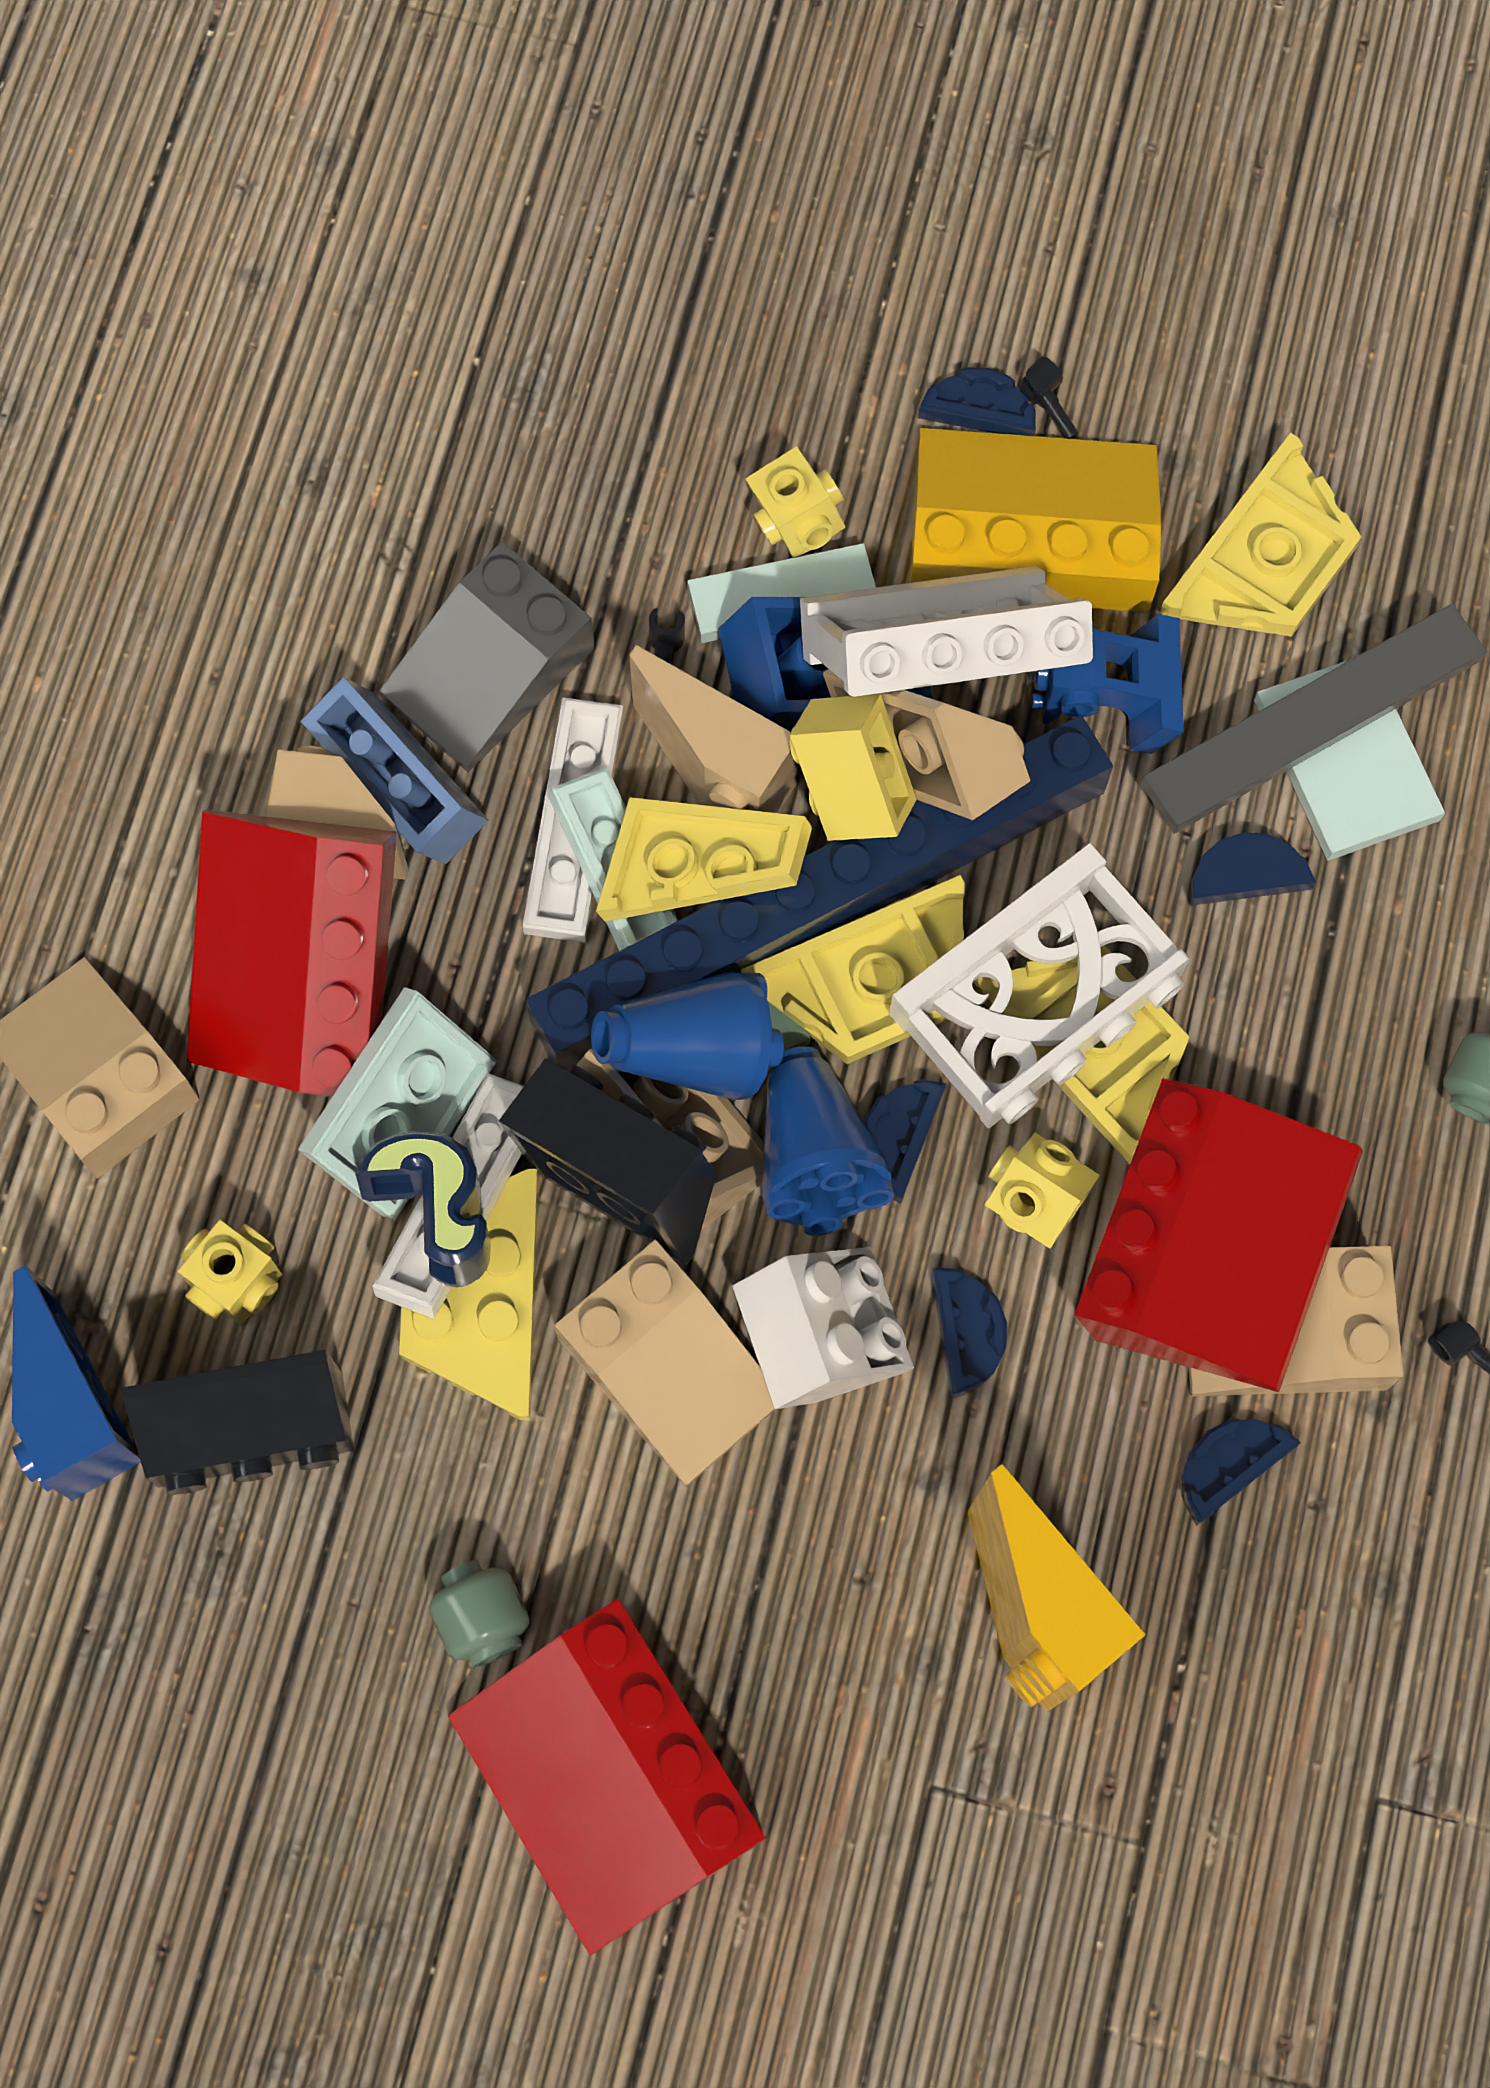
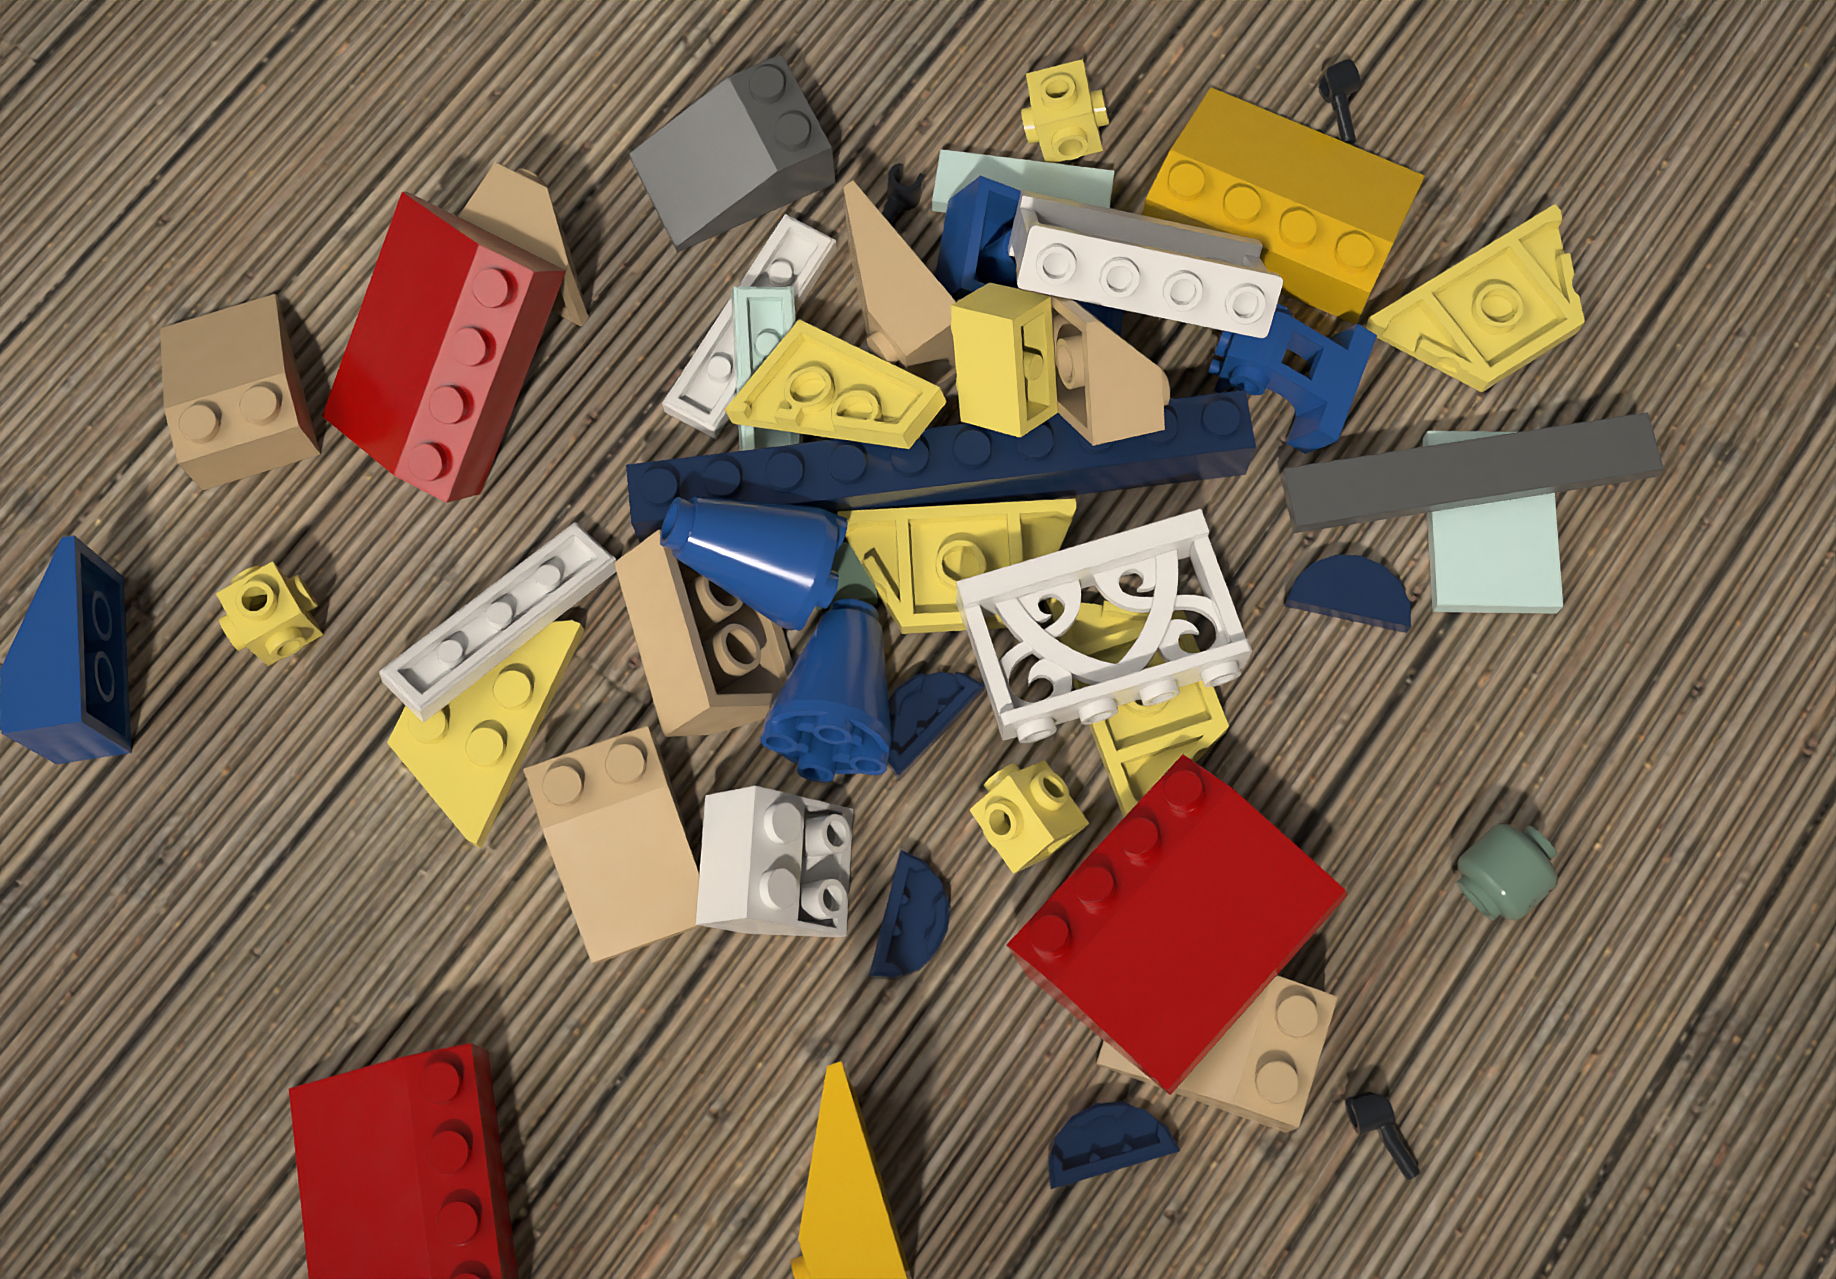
camera: 25 degrees right, 0 degrees up
(240, 1421) = (215, 748): black slope -> none
(395, 770) = (603, 224): medium blue brick -> none
(408, 1078) = (476, 518): light aqua tile -> none
(450, 1186) = (475, 616): dark blue animal -> none
(479, 1614) = (350, 1006): sand green head -> none
(613, 1156) = (639, 632): black slope -> none
(981, 402) = (1276, 82): dark blue tile -> none

